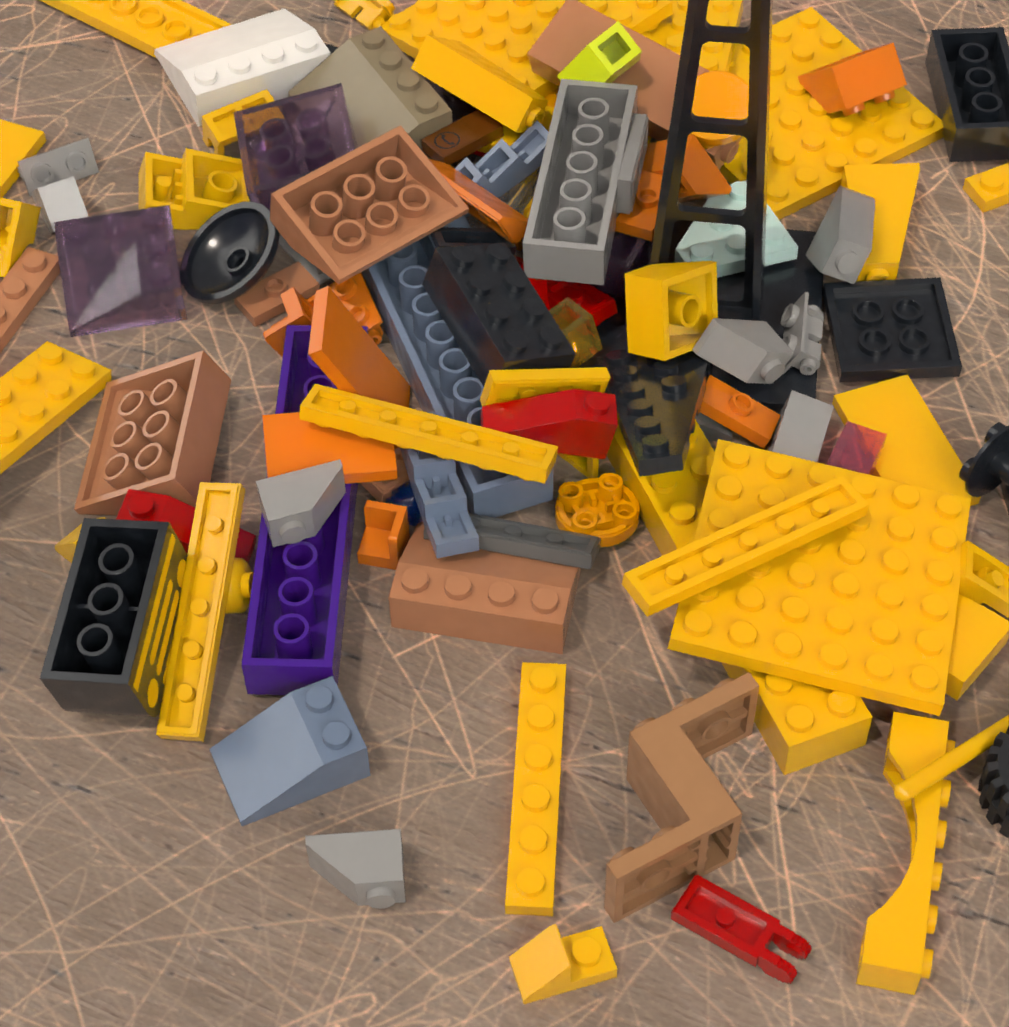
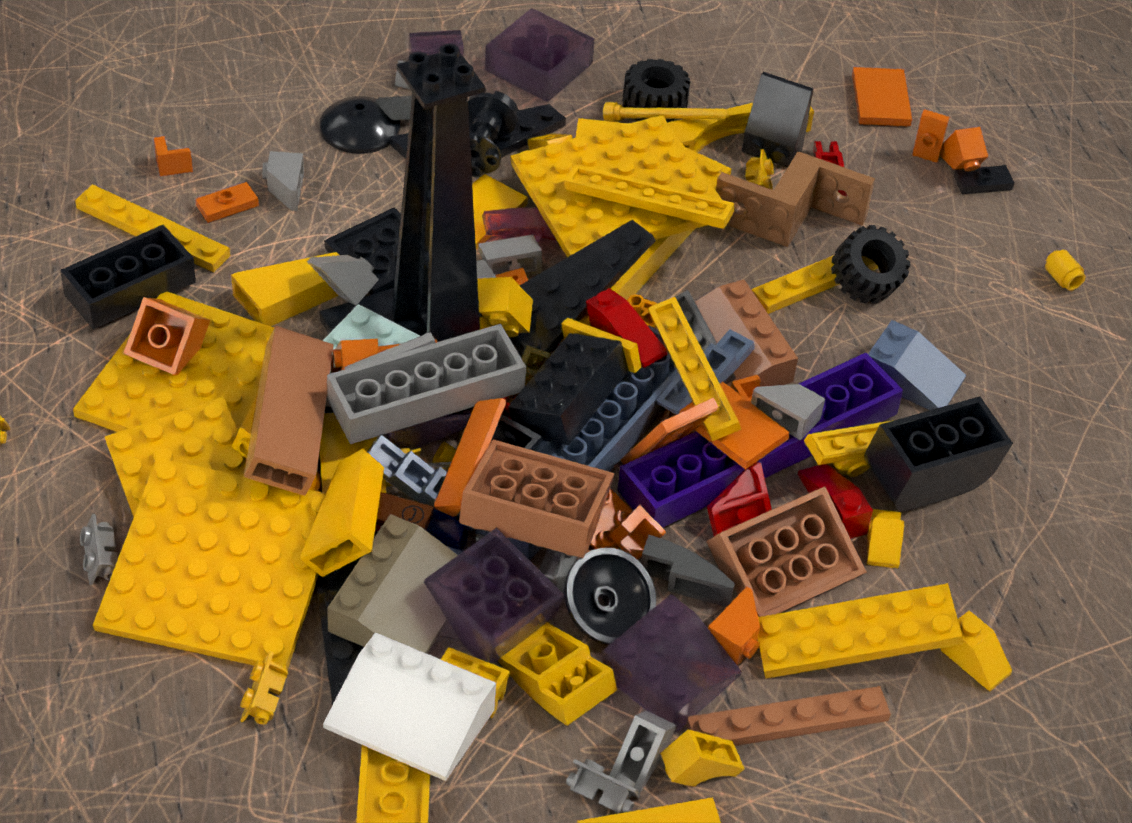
camera: 130 degrees left, 5 degrees down
(106, 339) = (738, 627): none -> orange slope
(223, 340) = (686, 572): none -> dark grey slope
(242, 433) = (740, 500): none -> red wing
(361, 865) = (940, 307): light grey slope -> none
(502, 826) = (857, 277): none -> black tyre
(559, 965) = (910, 221): yellow slope -> none
(604, 57) = (315, 403): neon yellow slope -> none
(719, 96) = (306, 338): light orange tile -> none
(766, 814) = (759, 171): none -> yellow hinge
(850, 876) = (778, 119): none -> black slope

